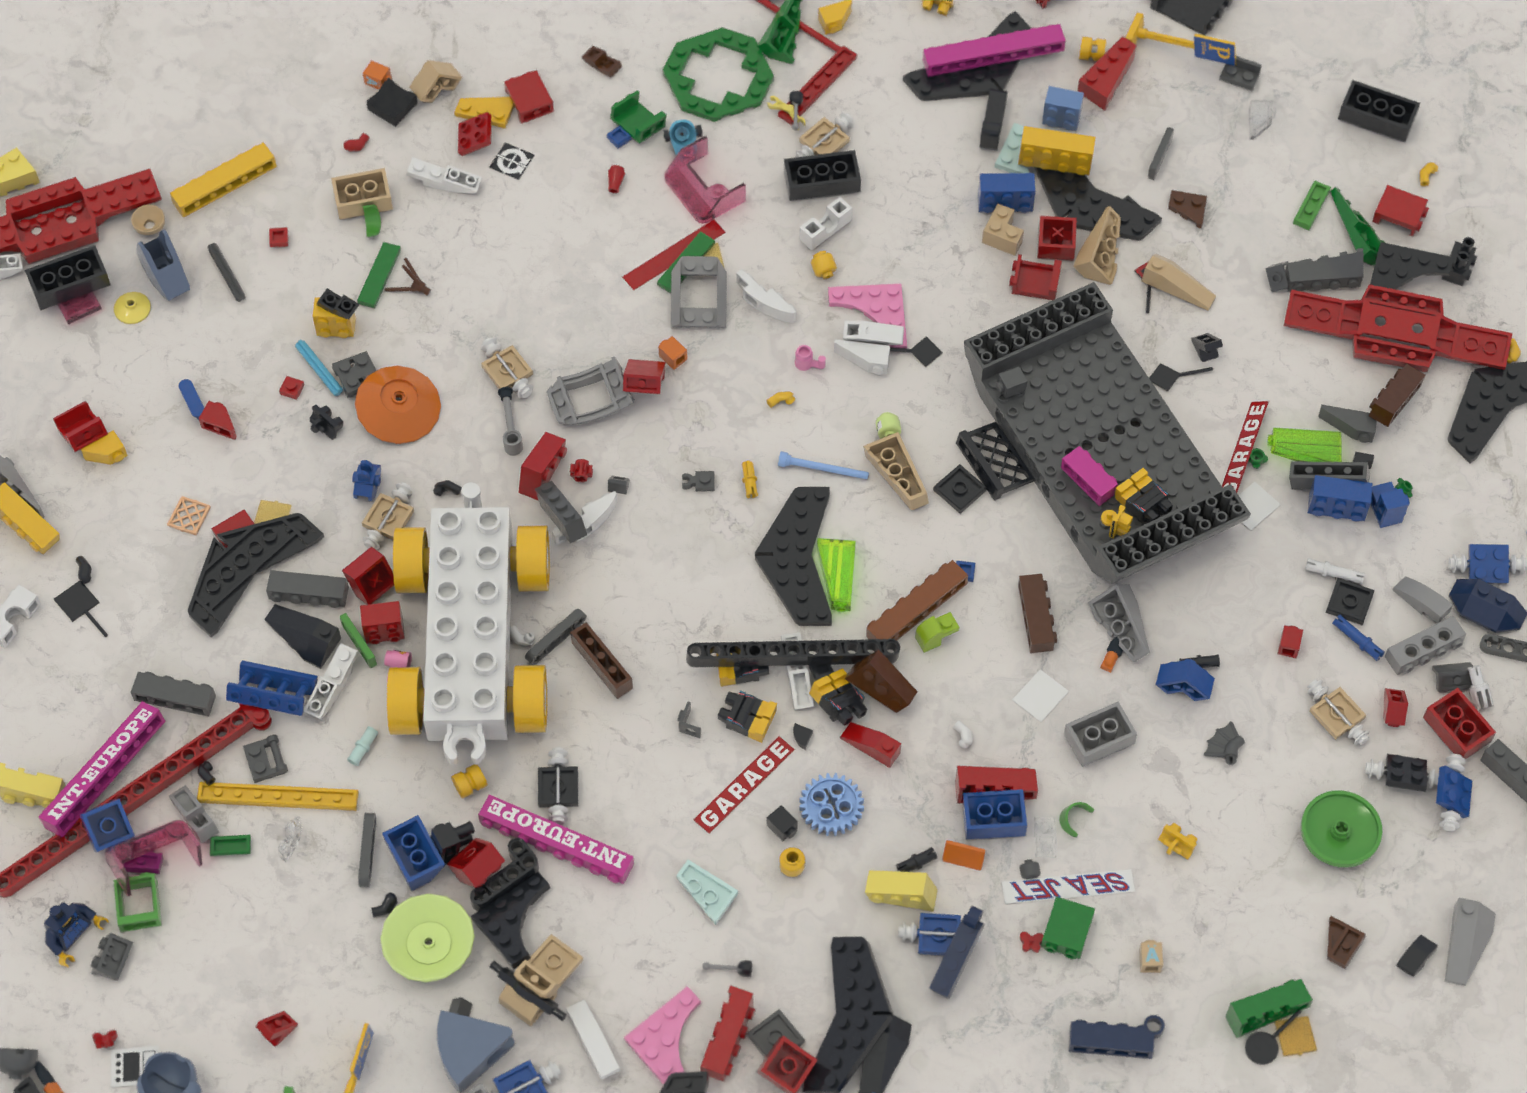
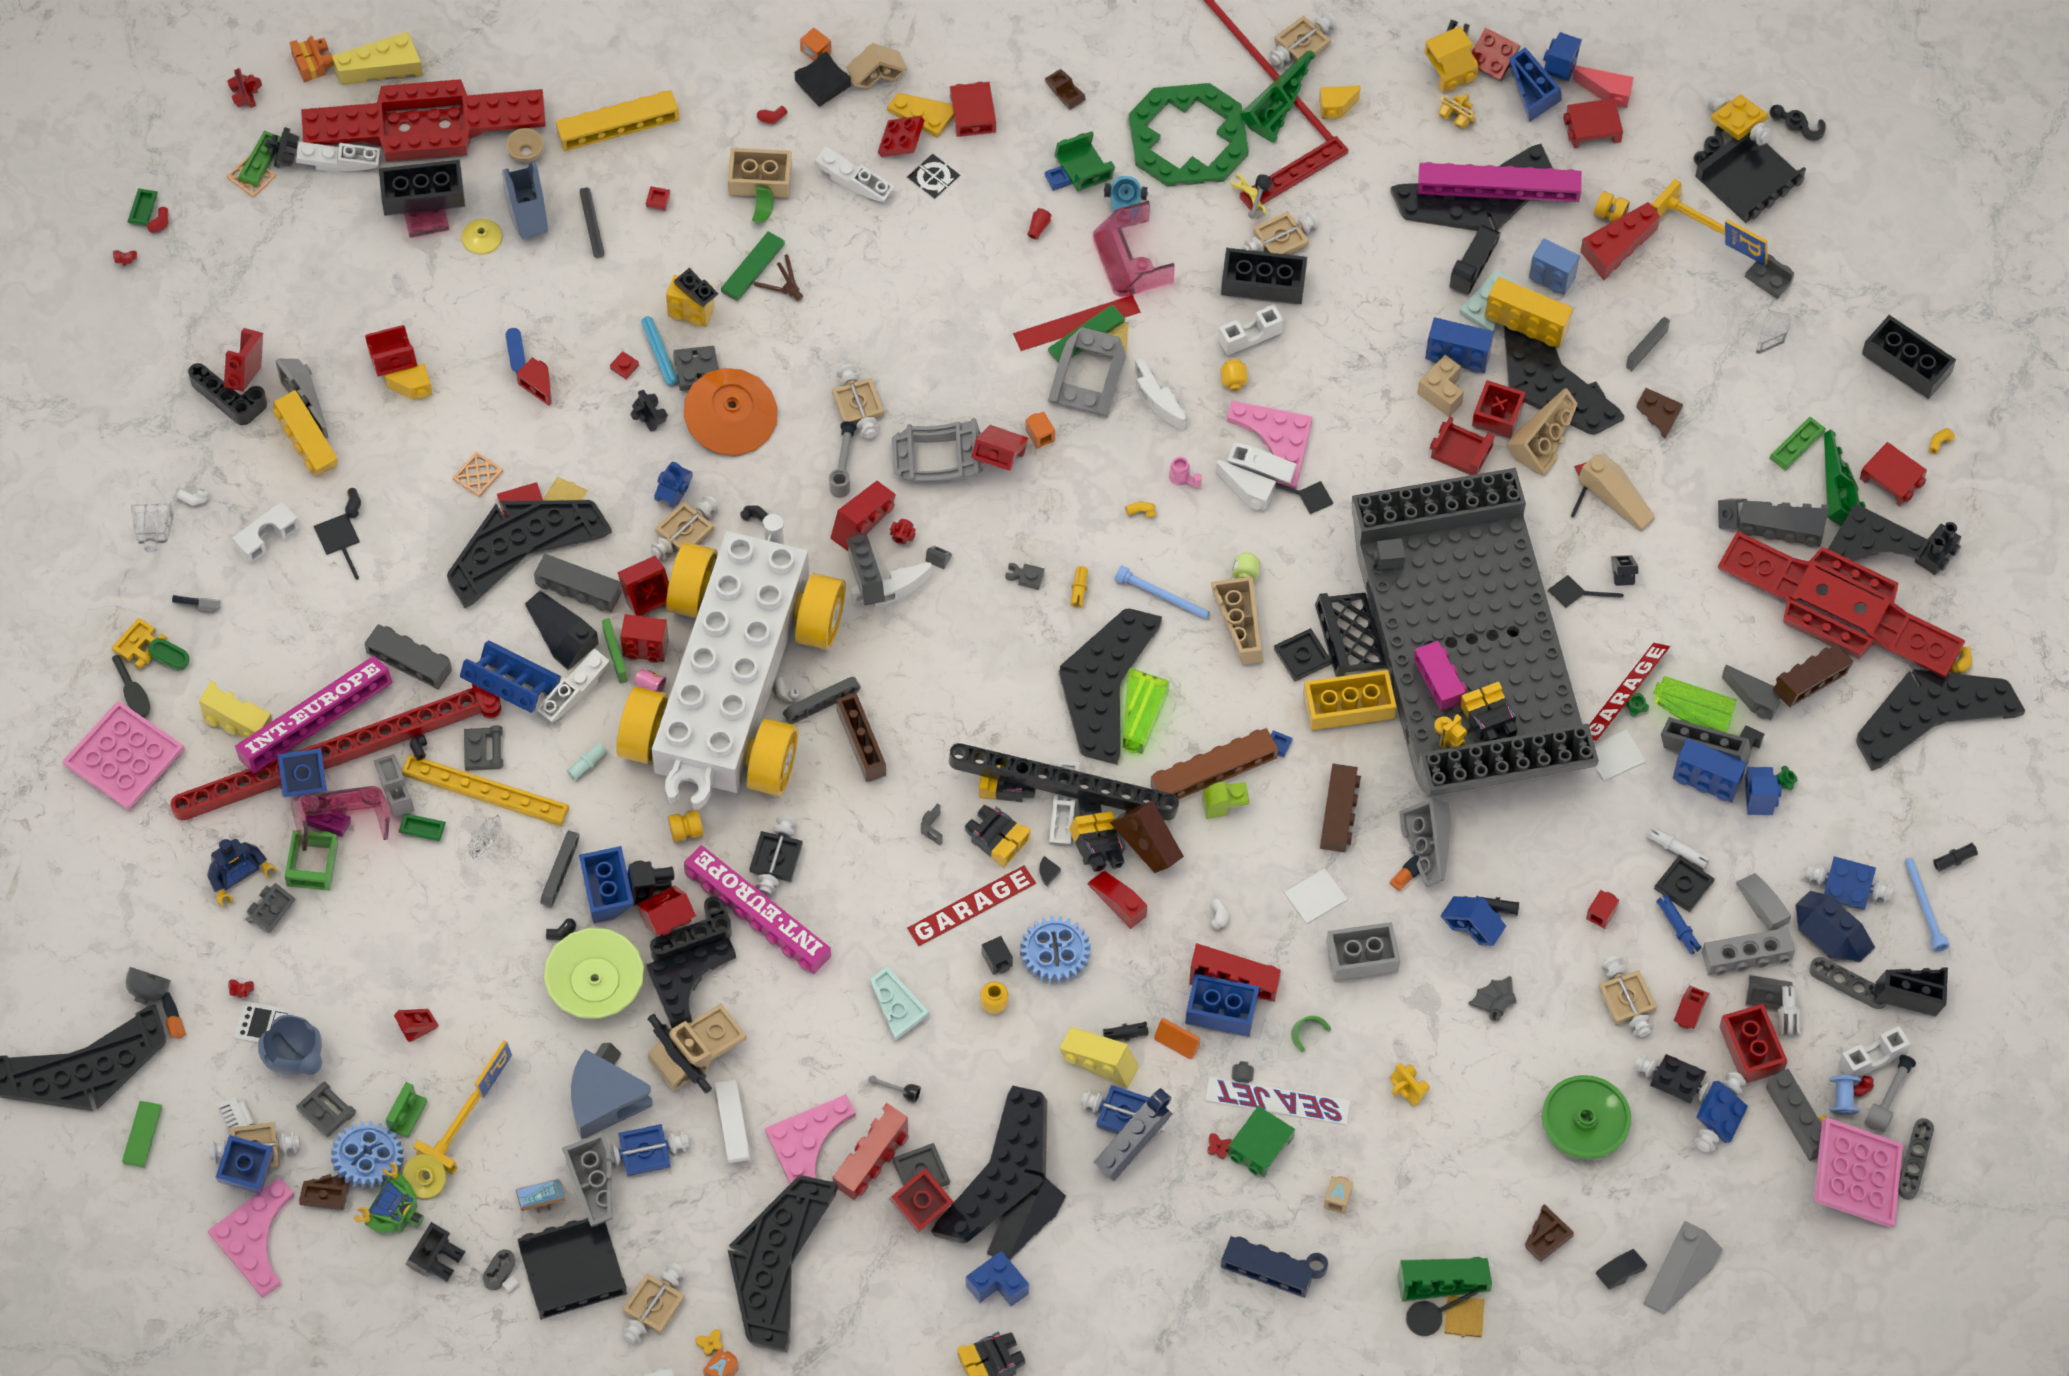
camera: 15 degrees right, 0 degrees up
(1015, 517) = (1349, 700): none -> yellow brick

